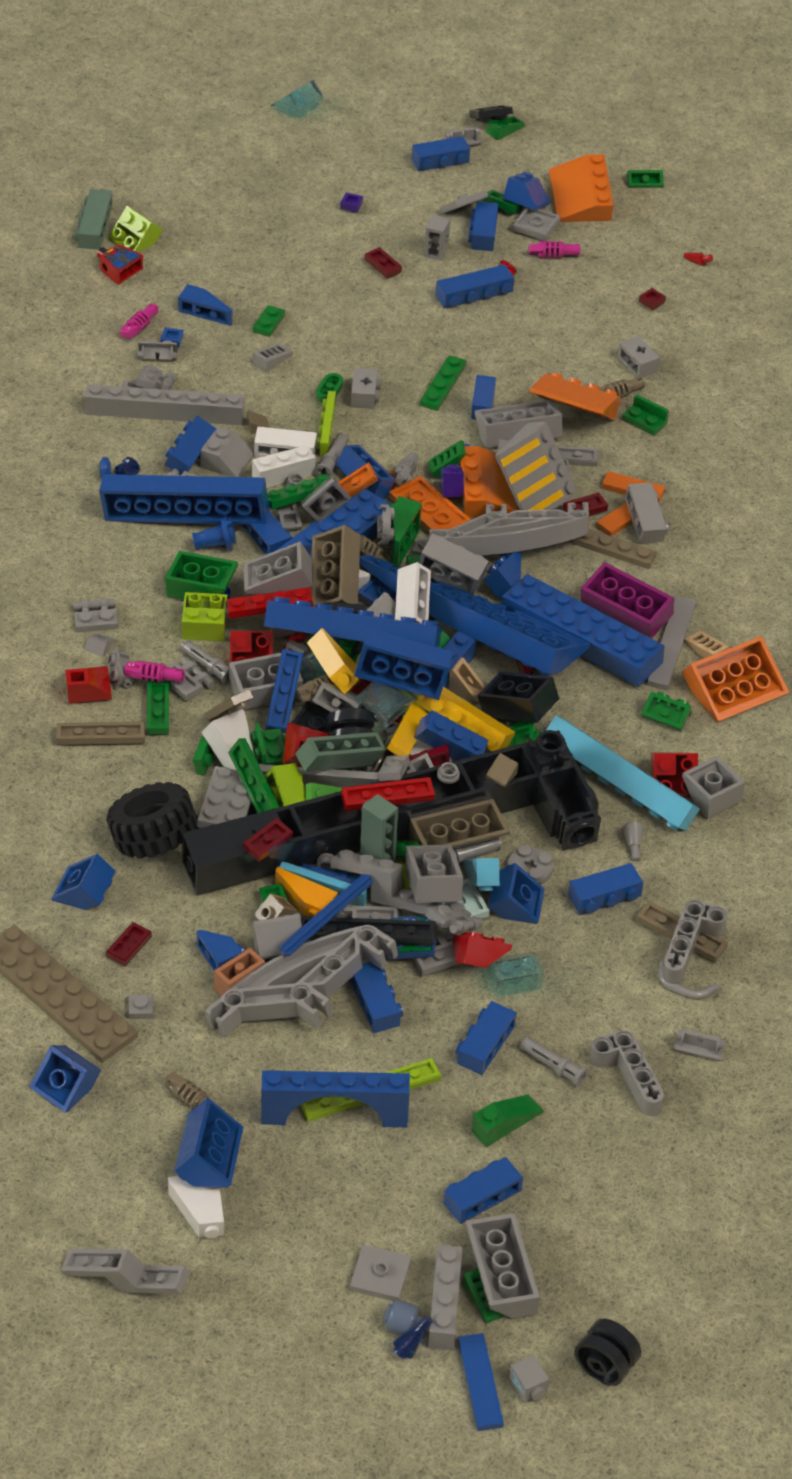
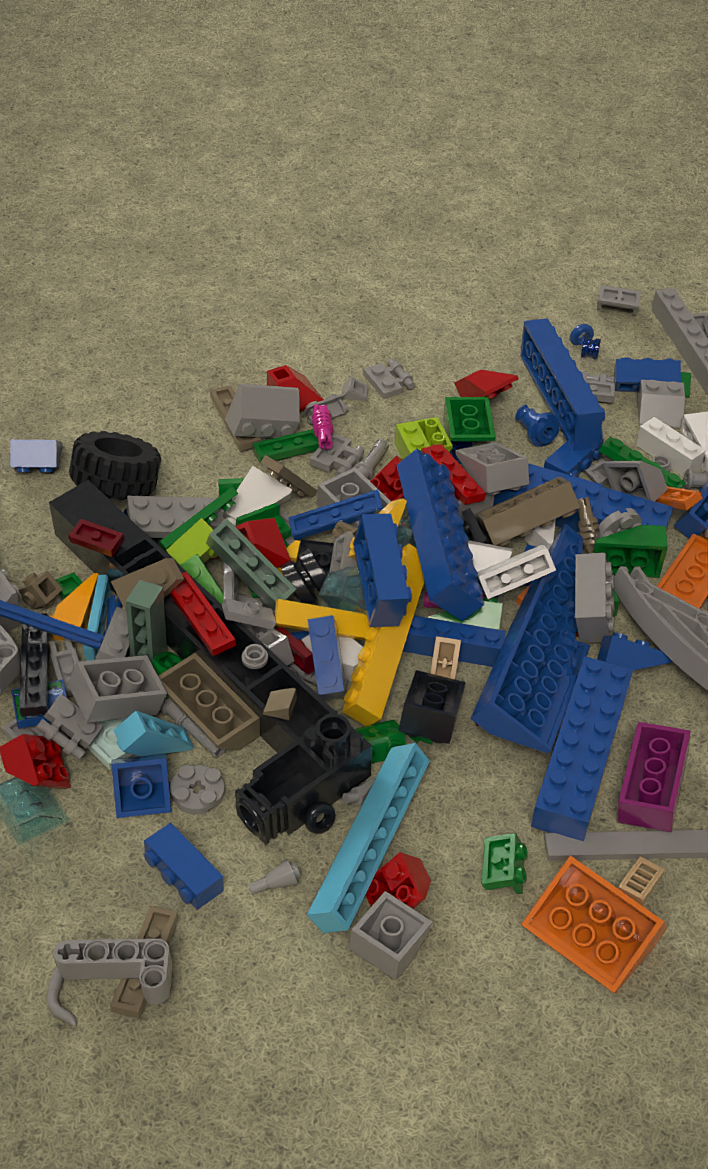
camera: 70 degrees right, 0 degrees up
(72, 427) = (619, 298): none -> light grey hinge
(128, 704) = (264, 411): none -> light grey slope
(155, 552) = (484, 384): none -> red slope
(343, 824) = (162, 573): none -> dark tan wing

